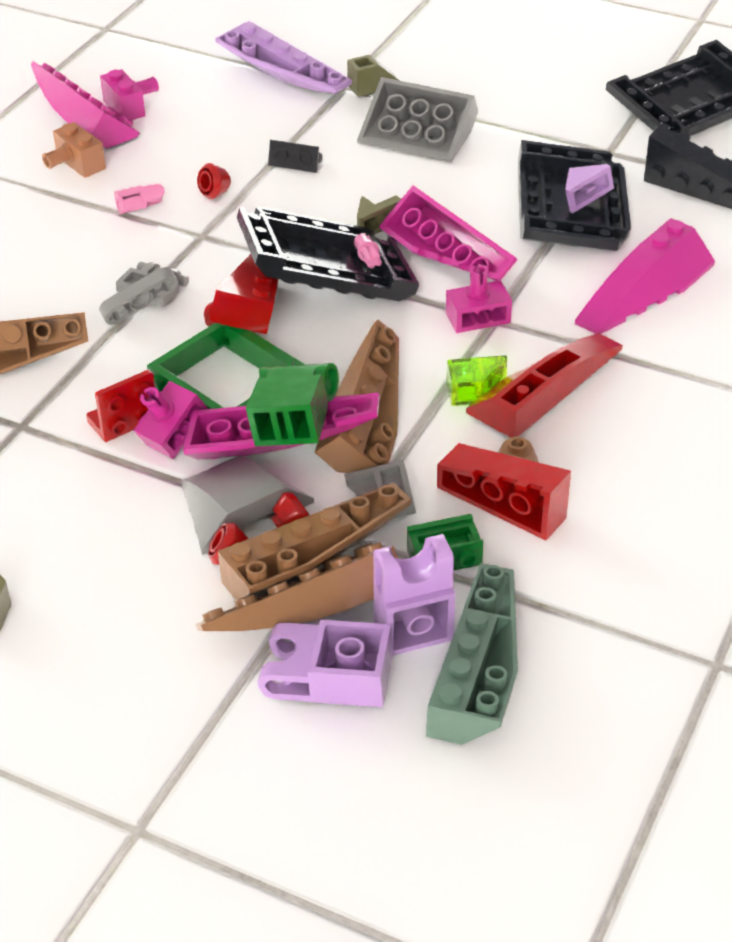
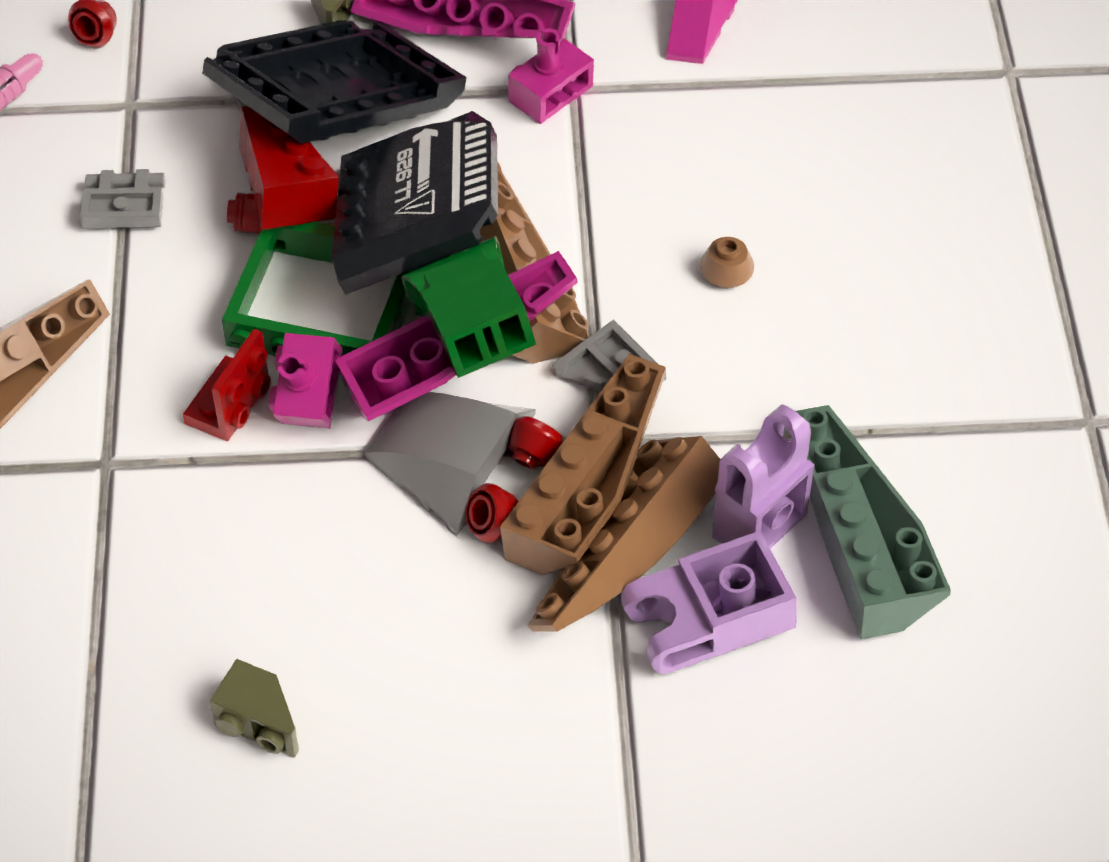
camera: 30 degrees left, 10 degrees up
(152, 288) = (131, 226): light grey beam -> none
(309, 332) = (414, 199): none -> black slope
(367, 250) = (377, 54): bright pink axle -> none
(460, 535) = (729, 406): green hinge -> none
(472, 377) = (611, 181): clear neon green slope -> none
(508, 487) = (749, 305): red wedge -> none
(533, 391) = (688, 161): red wedge -> none

